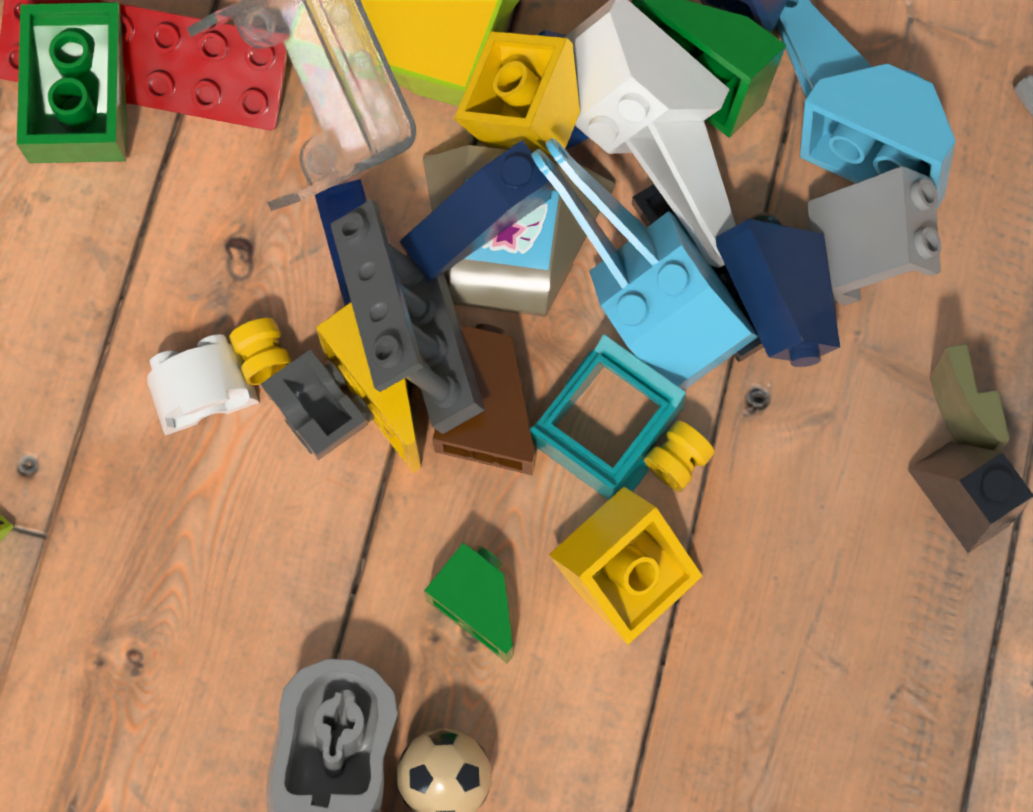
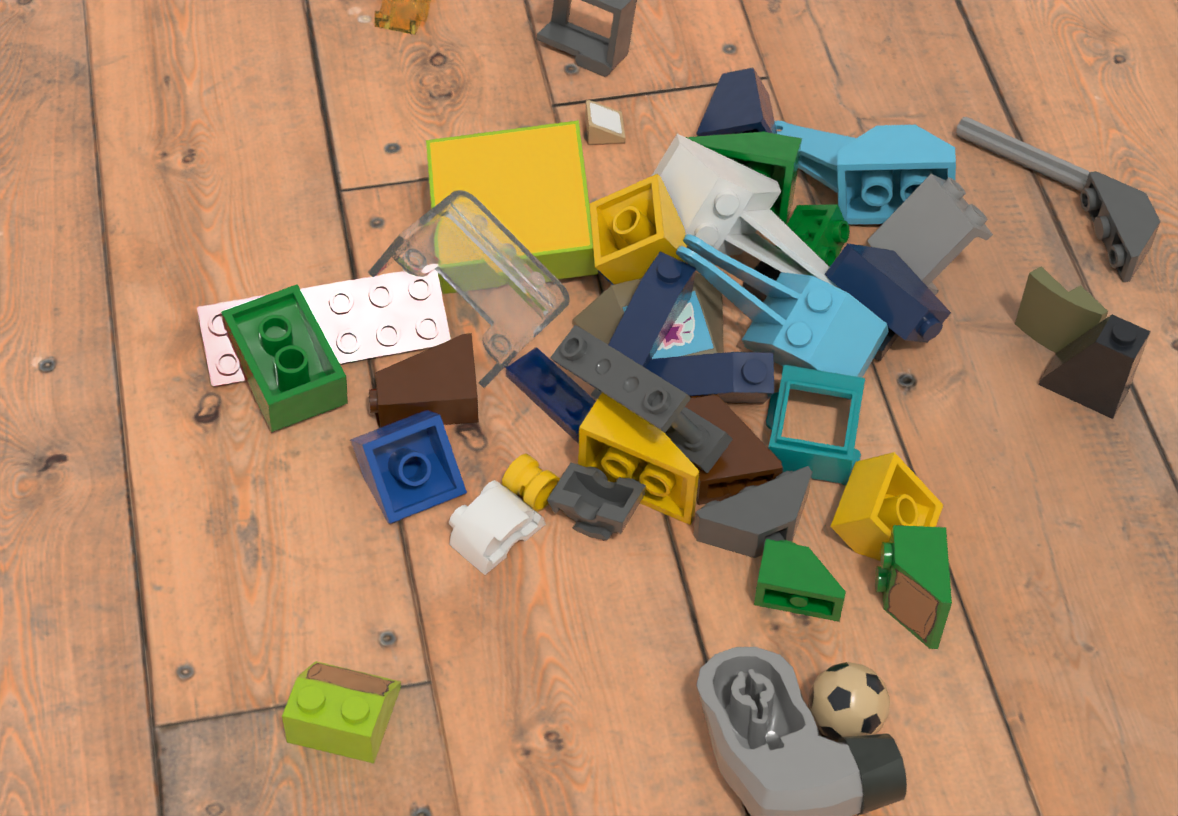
camera: 30 degrees left, 20 degrees down
(143, 271) = (409, 465): none -> blue slope
(216, 182) = (431, 381): none -> reddish brown slope
(484, 503) = (755, 514): none -> dark grey slope
(521, 309) = (730, 375): none -> dark blue slope
(597, 666) = (916, 580): none -> green slope
(679, 455) = (880, 429): yellow wheel -> none
(757, 167) = (820, 229): none -> green bracket

